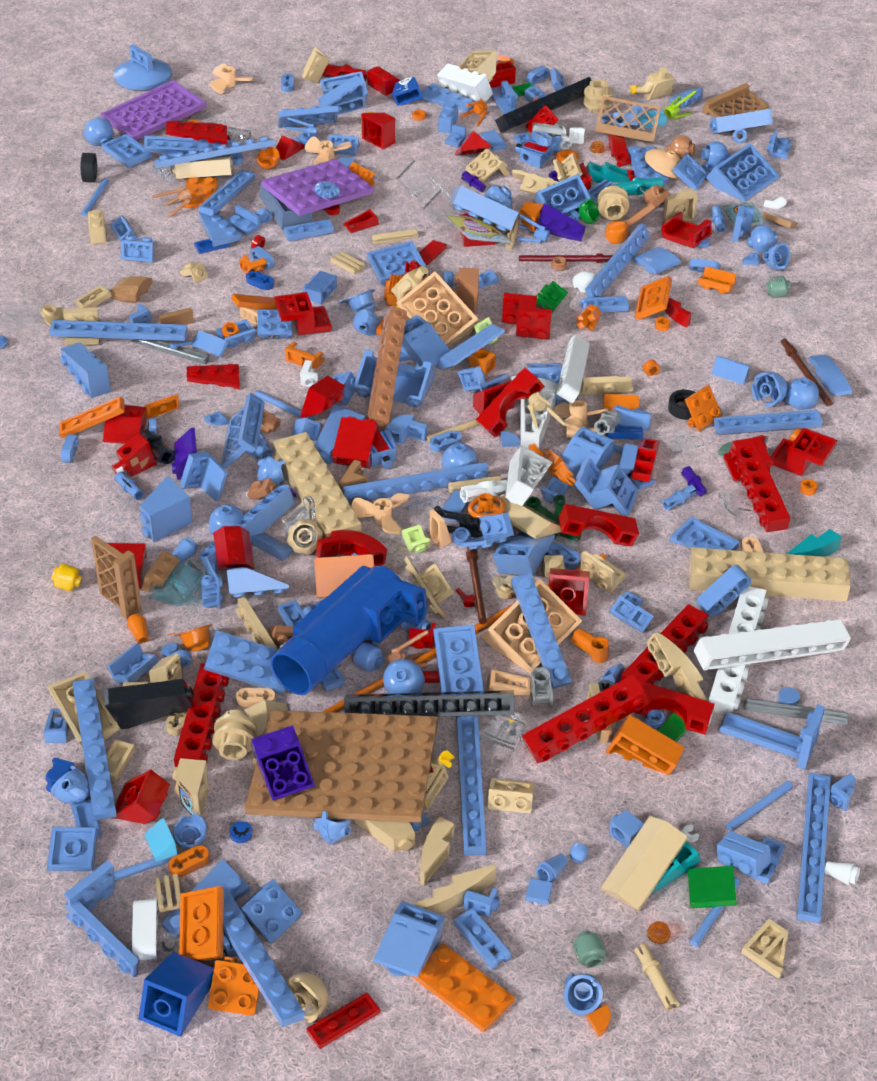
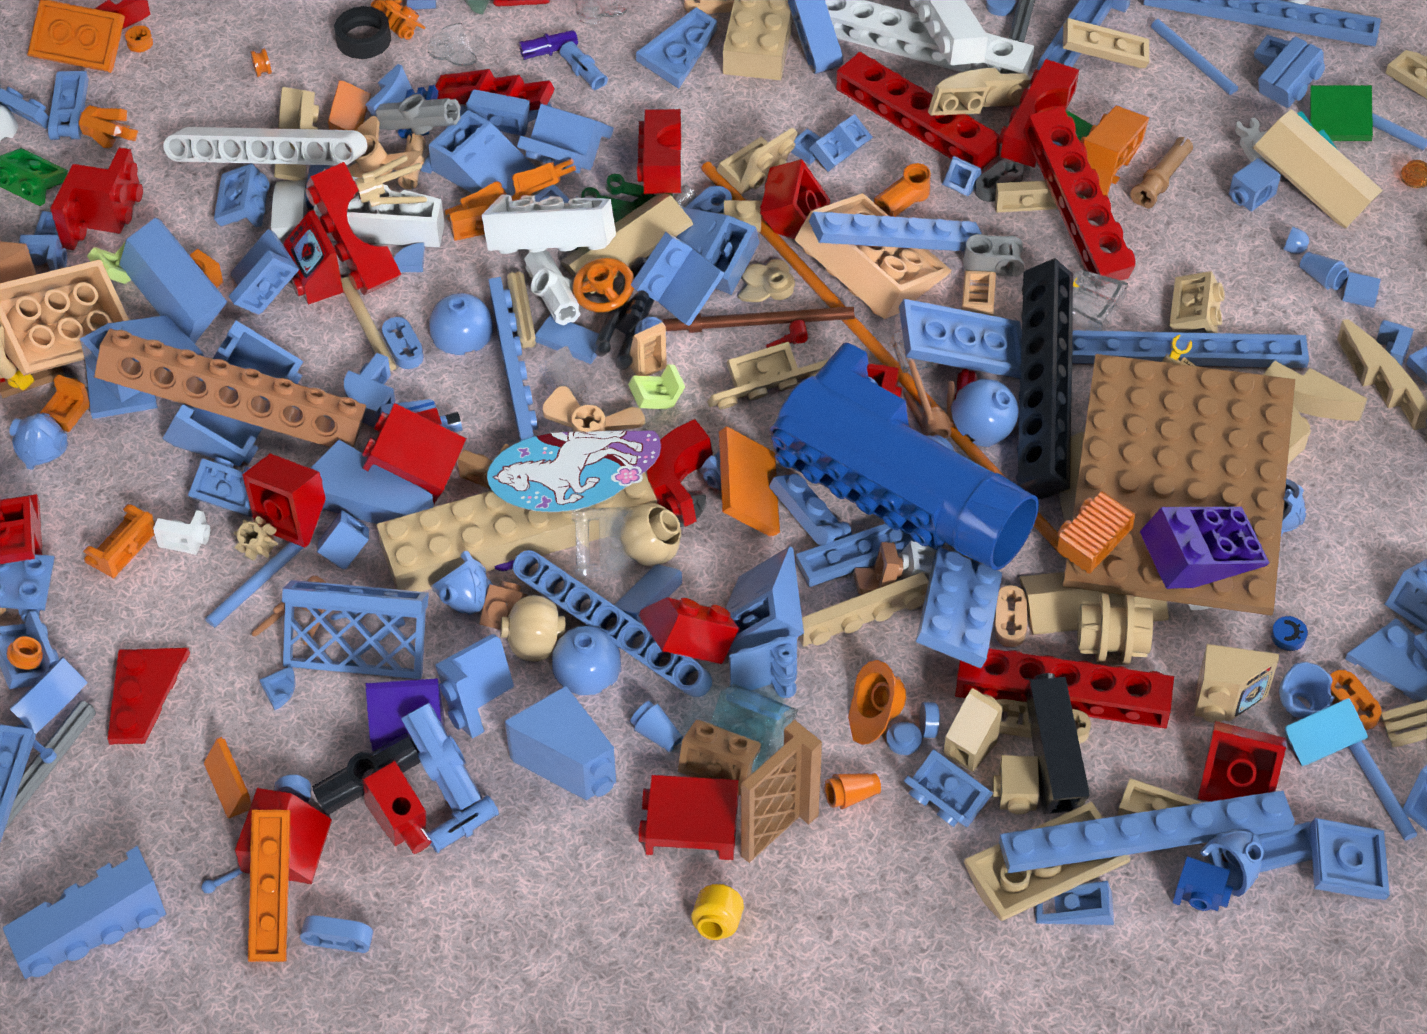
camera: 85 degrees left, 10 degrees up
(151, 473) = (441, 758): none -> medium blue piece
(244, 496) = (533, 628): none -> tan plant
(292, 710) = (1095, 531): none -> orange brick
(300, 397) = (255, 538): none -> tan gear
(342, 497) = (571, 468): none -> sticker
(492, 309) = (45, 250): none -> medium blue bracket
(627, 777) = (1157, 179): none -> medium nougat pin
(750, 746) = (1105, 43): none -> tan plate

